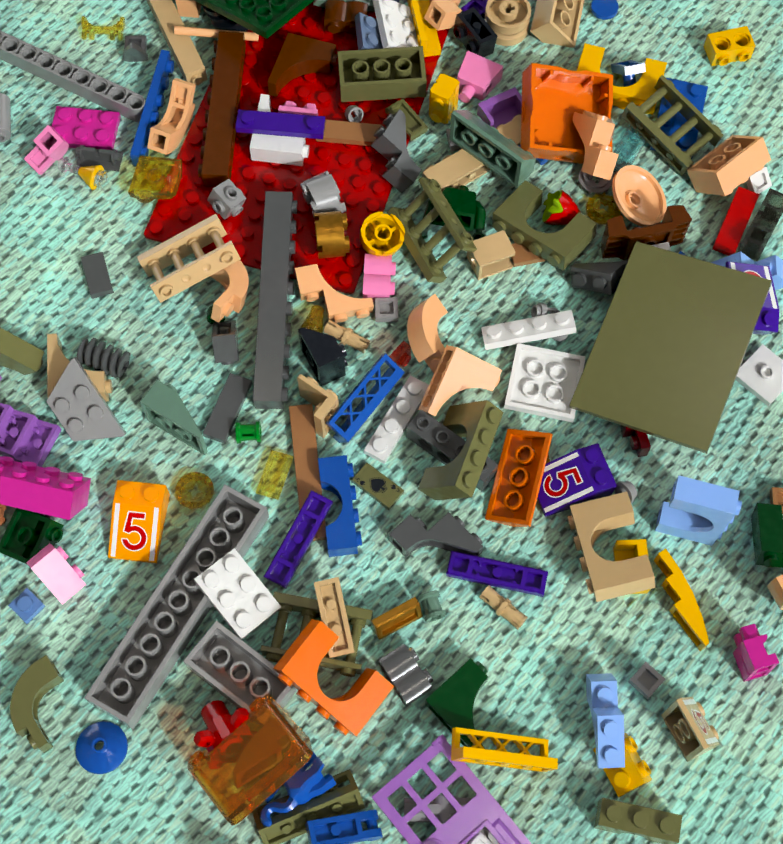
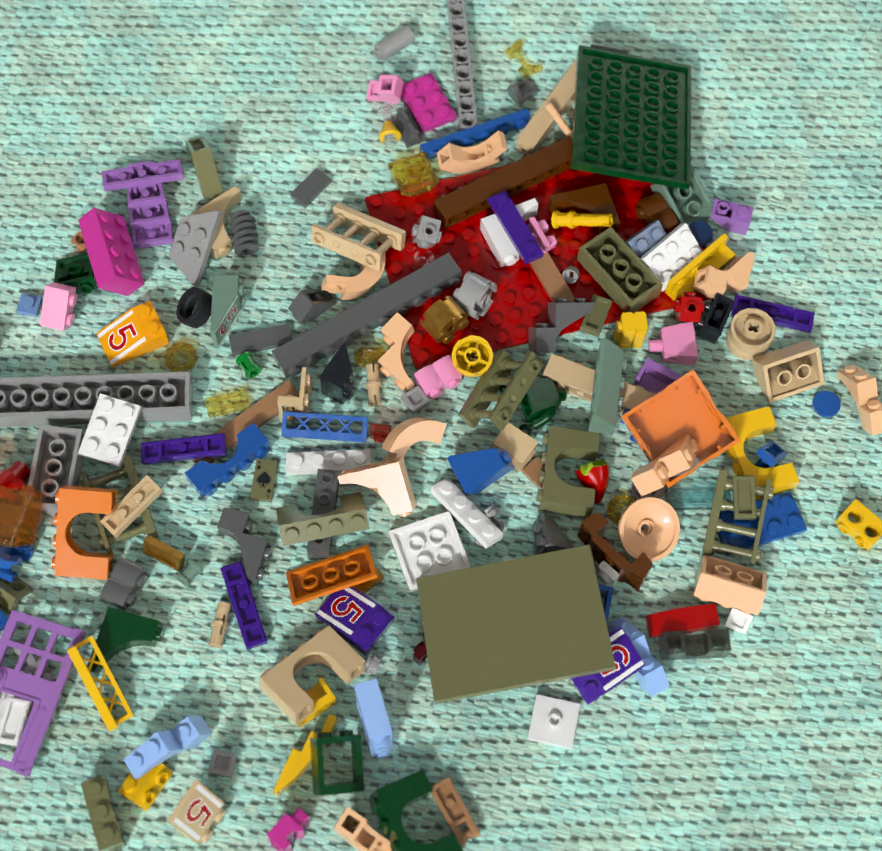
camera: 55 degrees right, 0 degrees up
(139, 449) = (187, 303): none -> black tyre
(304, 78) = (575, 219): none -> yellow pin
(454, 44) = (689, 314): none -> red brick
(495, 291) = (480, 468): none -> blue slope
(661, 105) = (744, 497): none -> olive tile
(736, 570) = (317, 764): none -> dark green window

